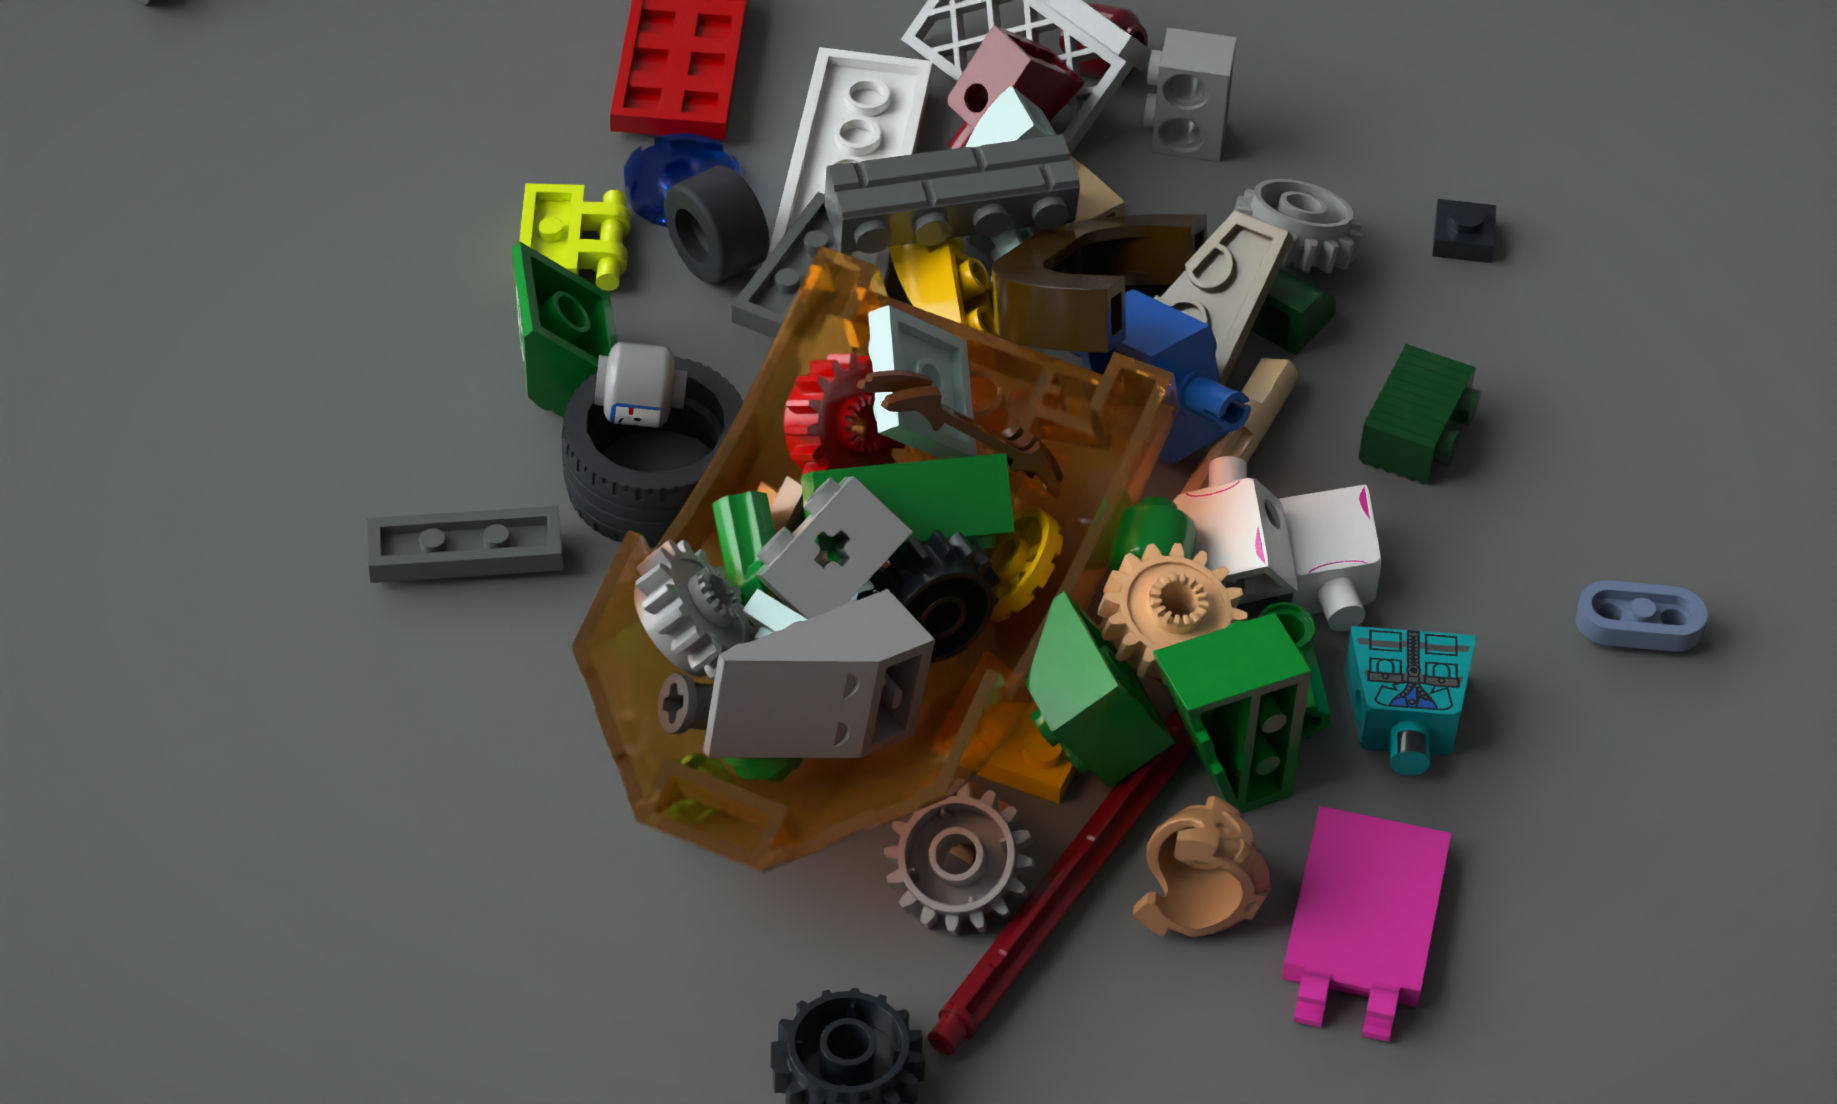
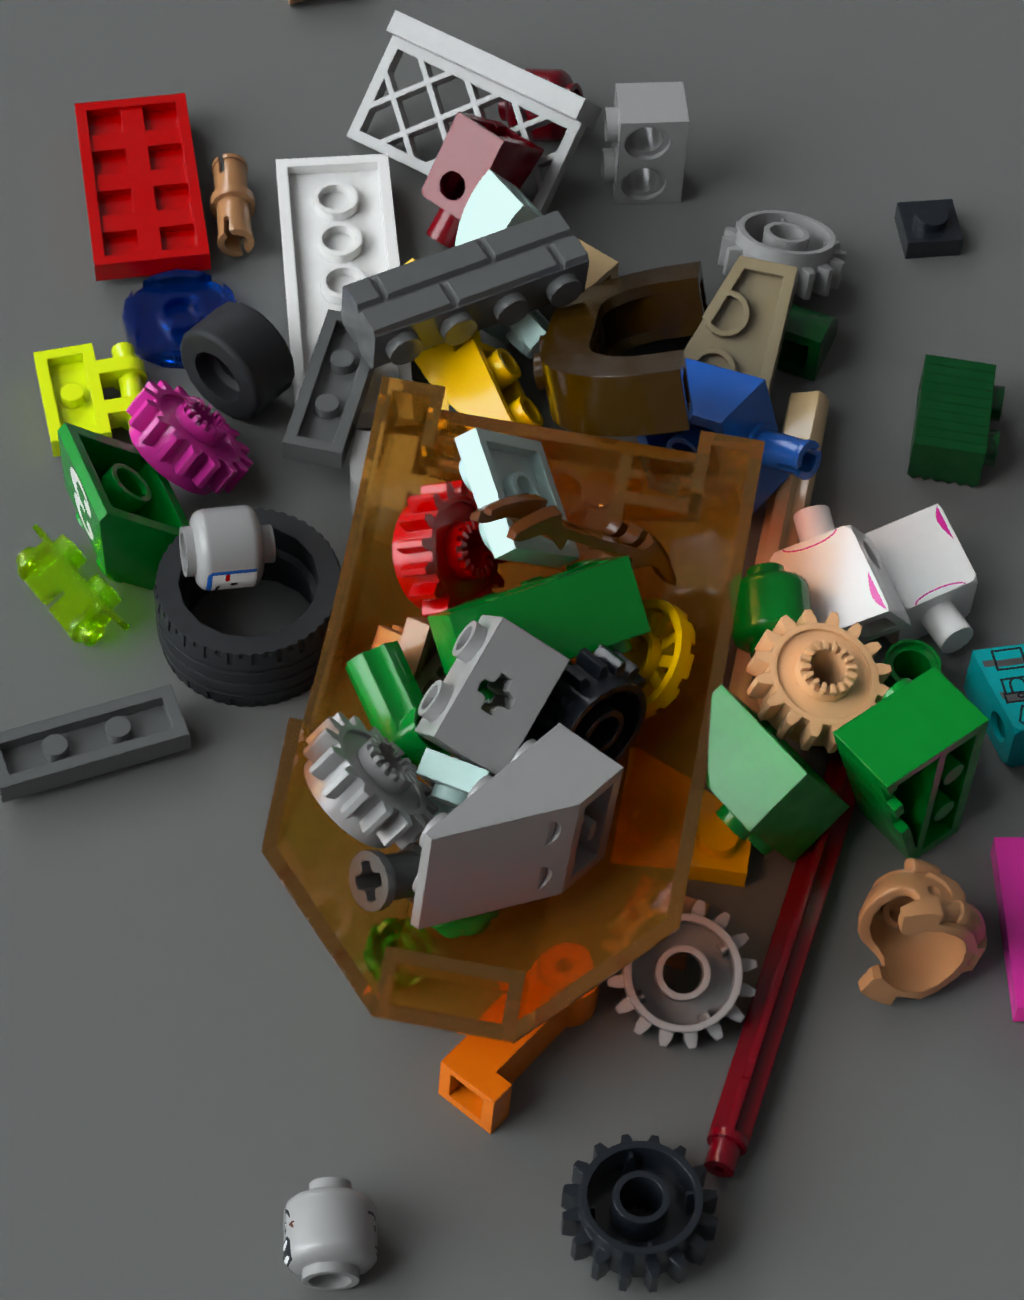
camera: 15 degrees left, 5 degrees up
(508, 417) = (86, 603): none -> clear neon green hinge
(549, 1016) = (330, 1234): none -> light grey head
(643, 288) = (186, 440): none -> dark pink gear
(747, 904) = (481, 1070): none -> orange leg
(765, 83) = (232, 205): none -> medium nougat pin

